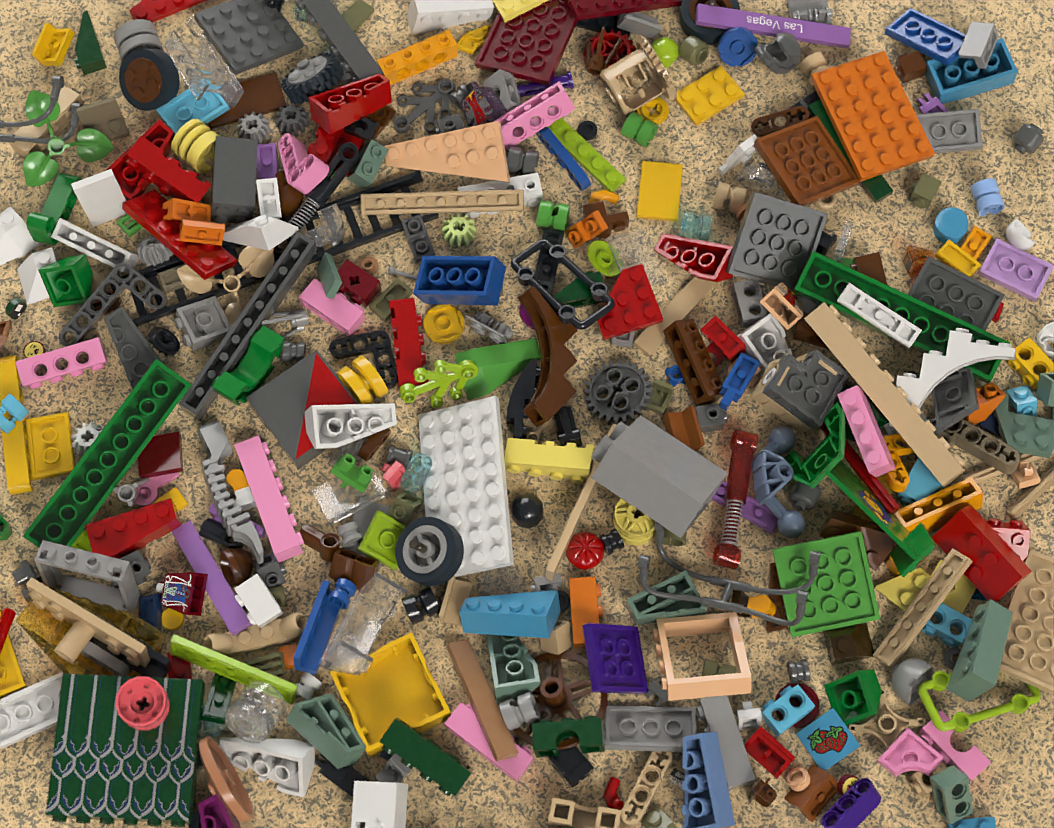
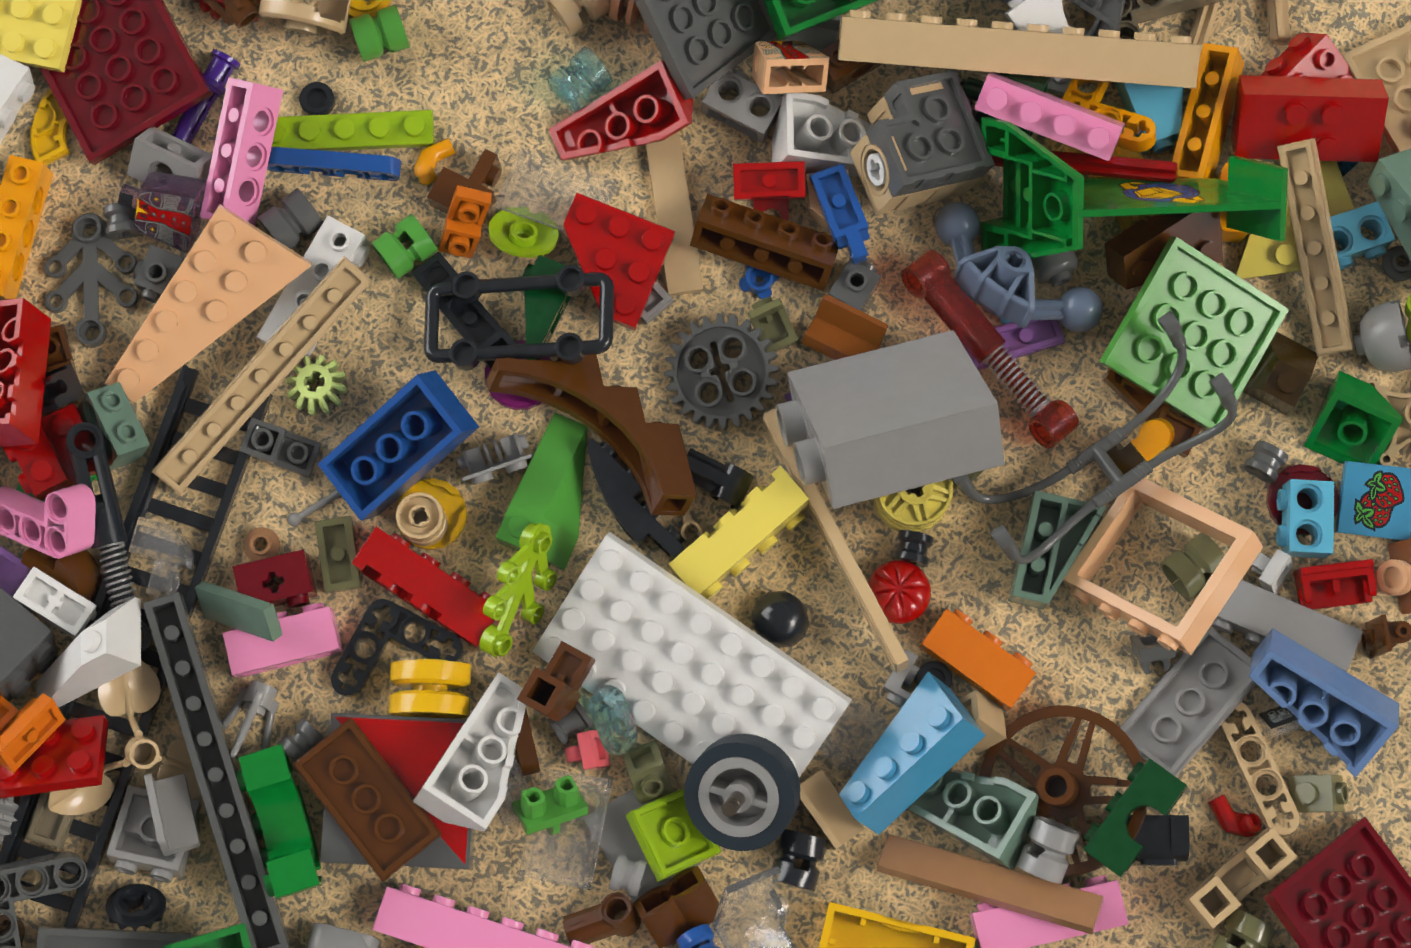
camera: 50 degrees left, 10 degrees up
(216, 320) = (172, 814): none -> light grey panel
(289, 394) = (367, 799): none -> reddish brown tile
(407, 434) = (557, 688): none -> reddish brown brick
(435, 318) = (421, 519): none -> tan wheel
(615, 659) = (1074, 674): dark purple plate -> none
(659, 191) = (486, 82): yellow tile -> none

